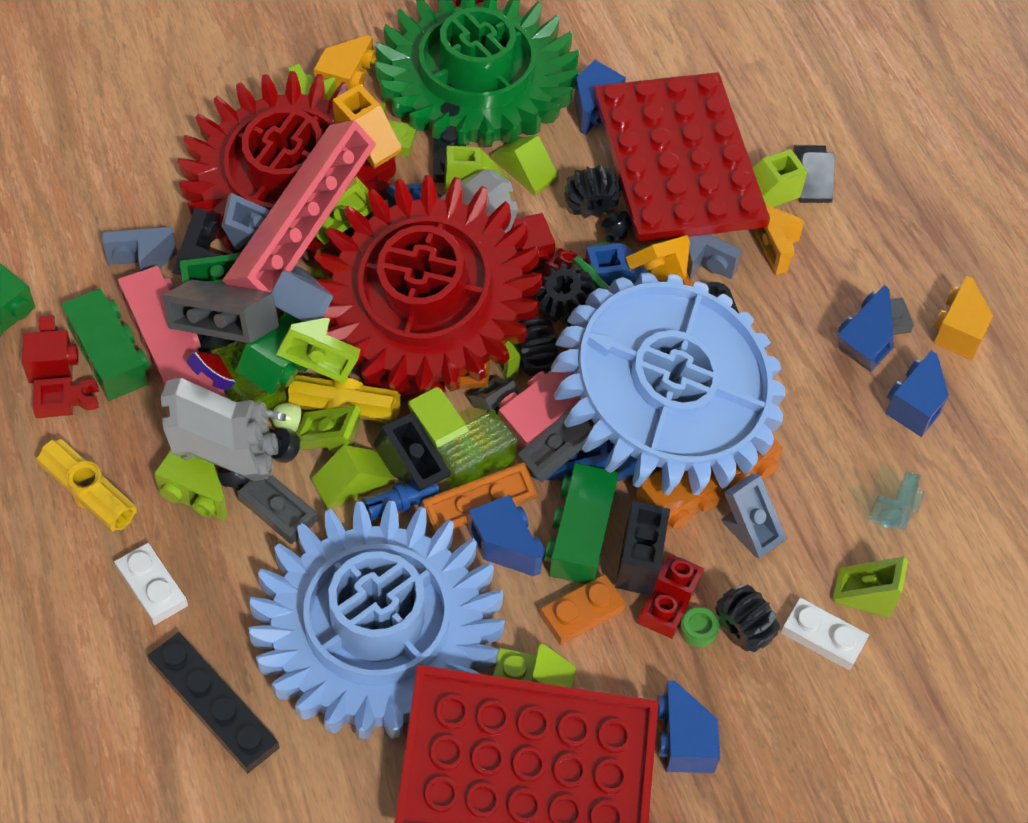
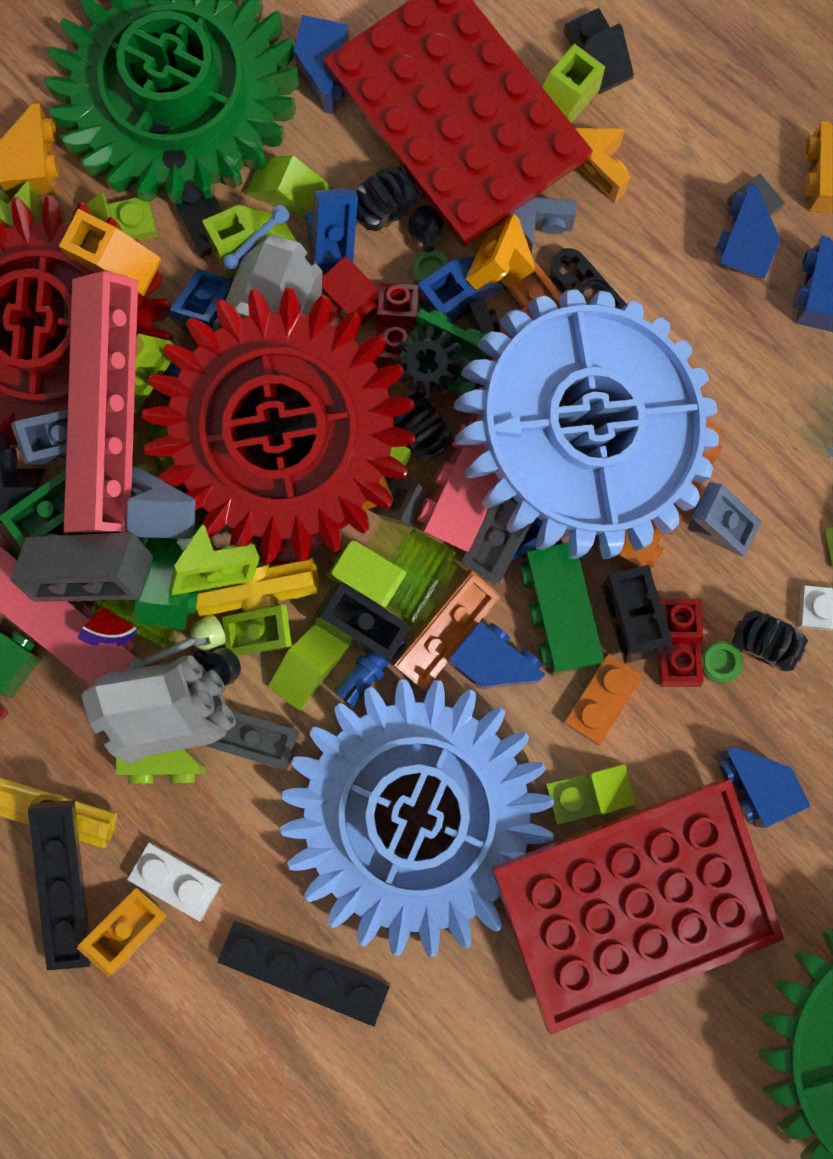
camera: 20 degrees left, 25 degrees up
(60, 532) = (59, 883): none -> black plate
(86, 591) = (122, 932): none -> light orange slope
(506, 159) = (279, 215): none -> medium blue hinge
(544, 189) = (332, 227): none -> blue slope

